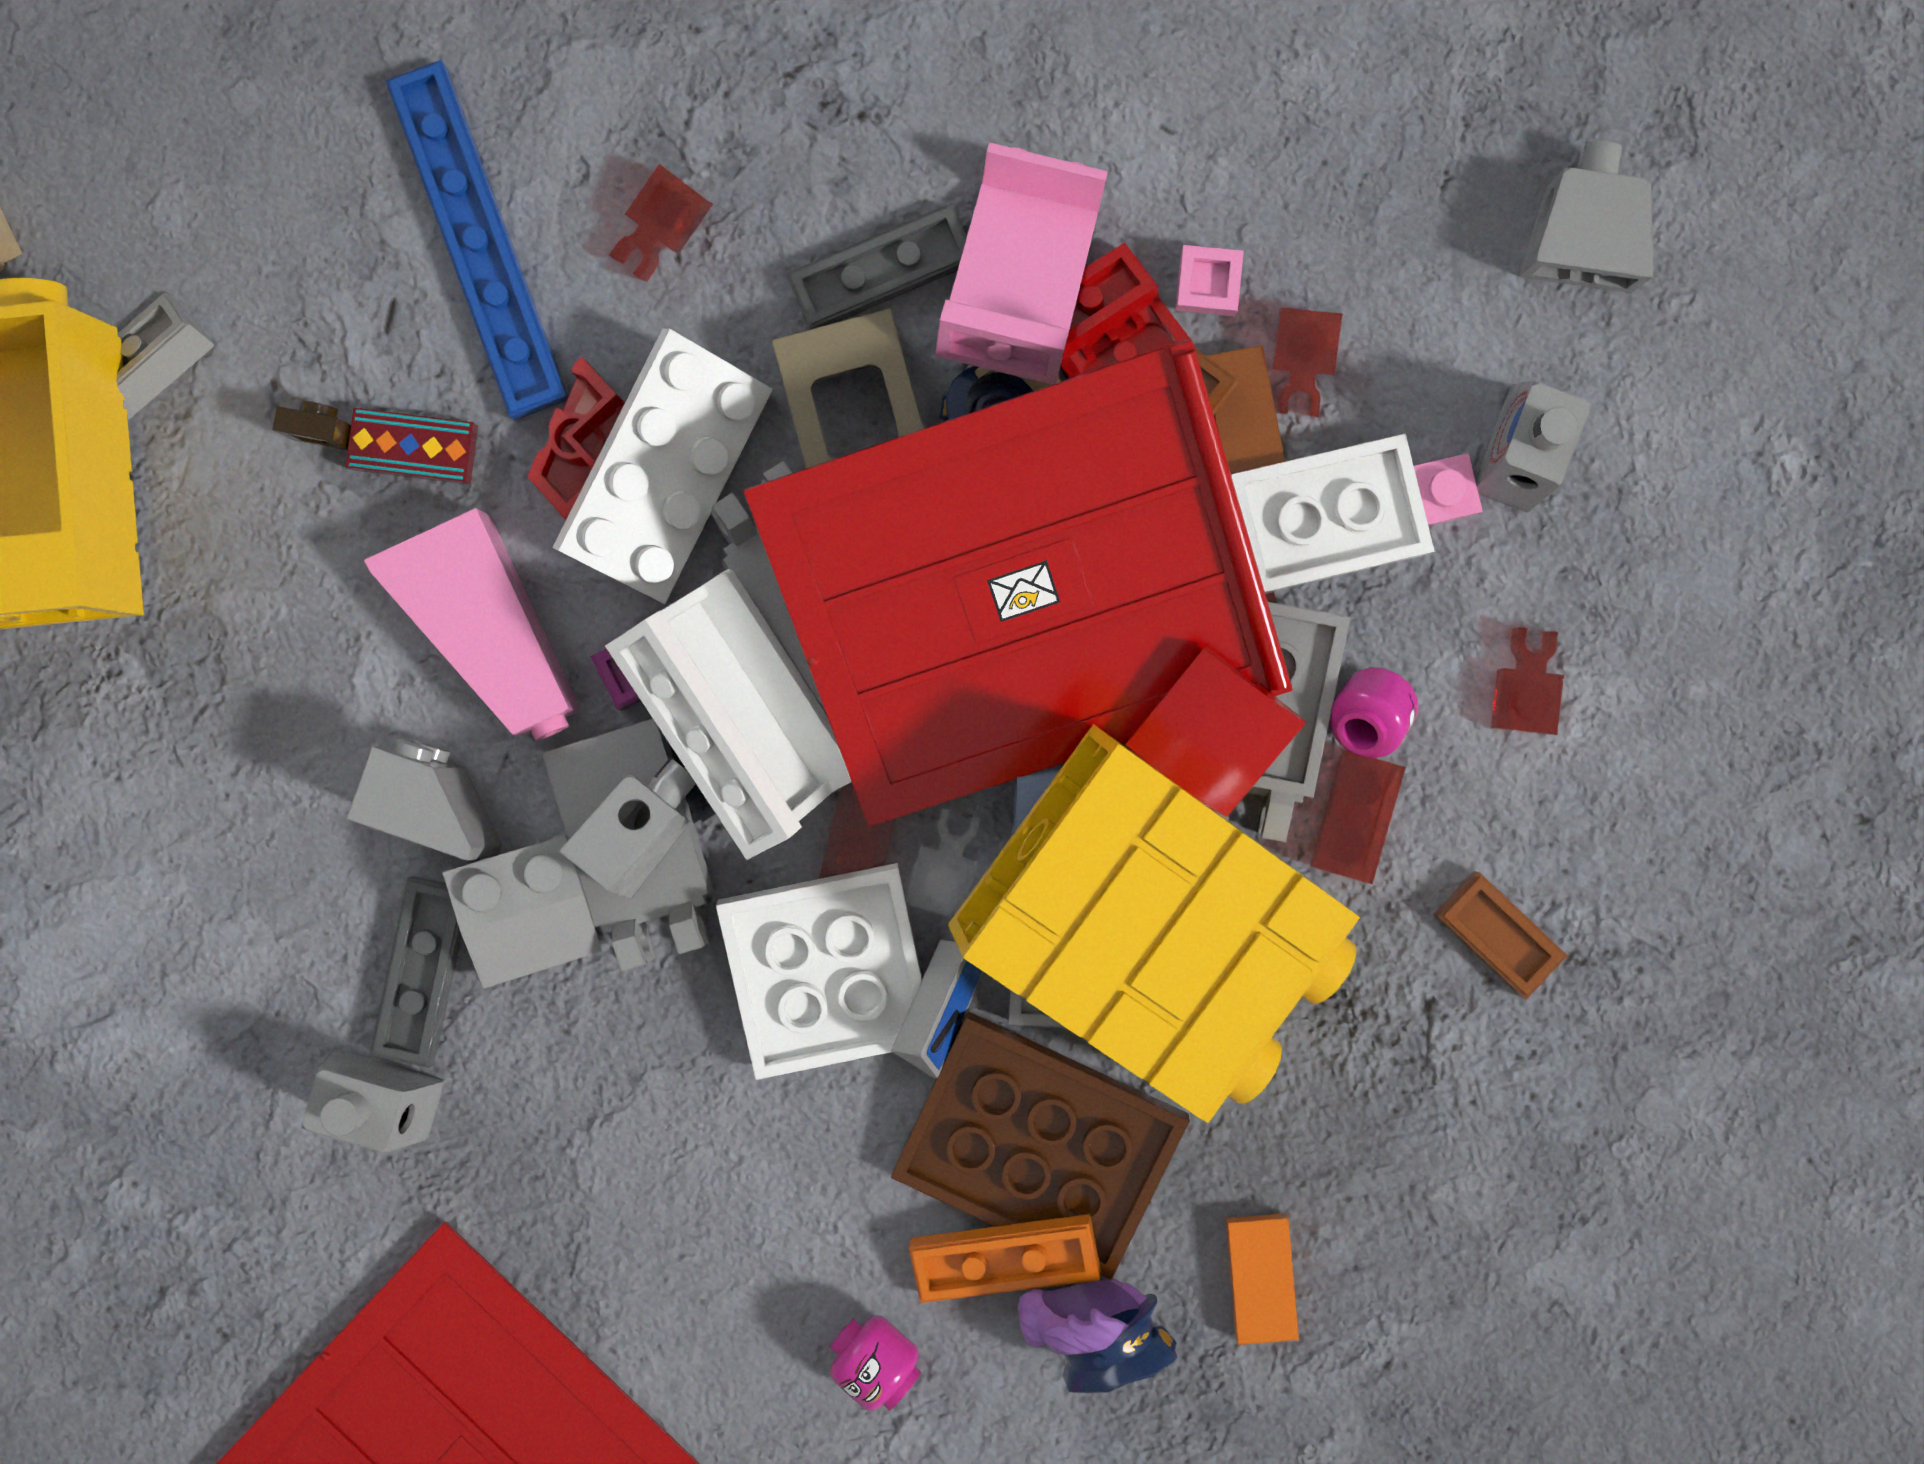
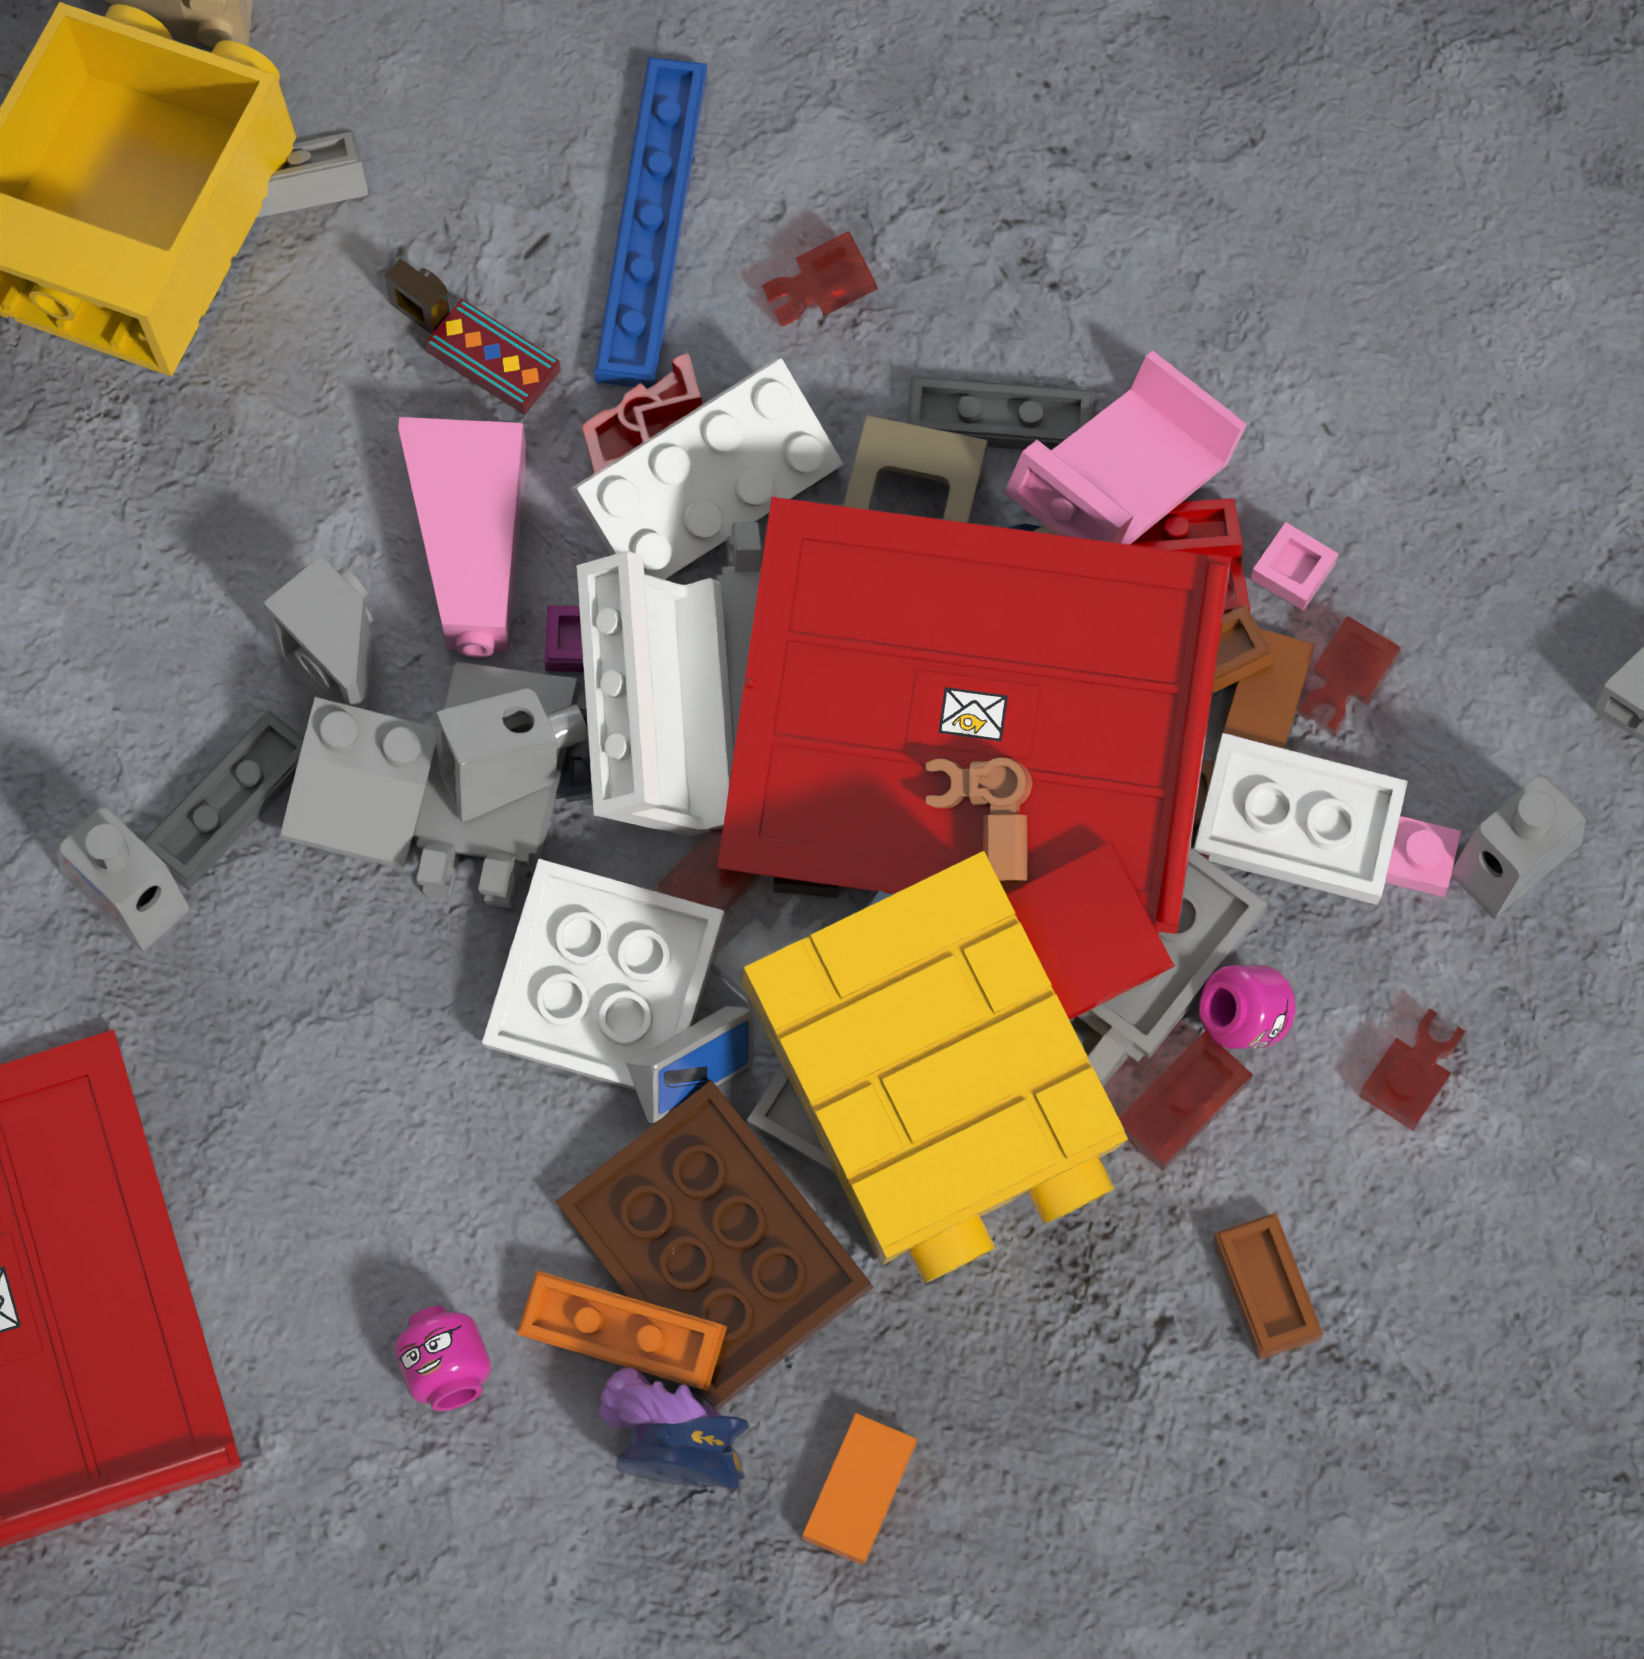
camera: 25 degrees right, 20 degrees down
(1086, 648) = (1003, 787): none -> nougat bar

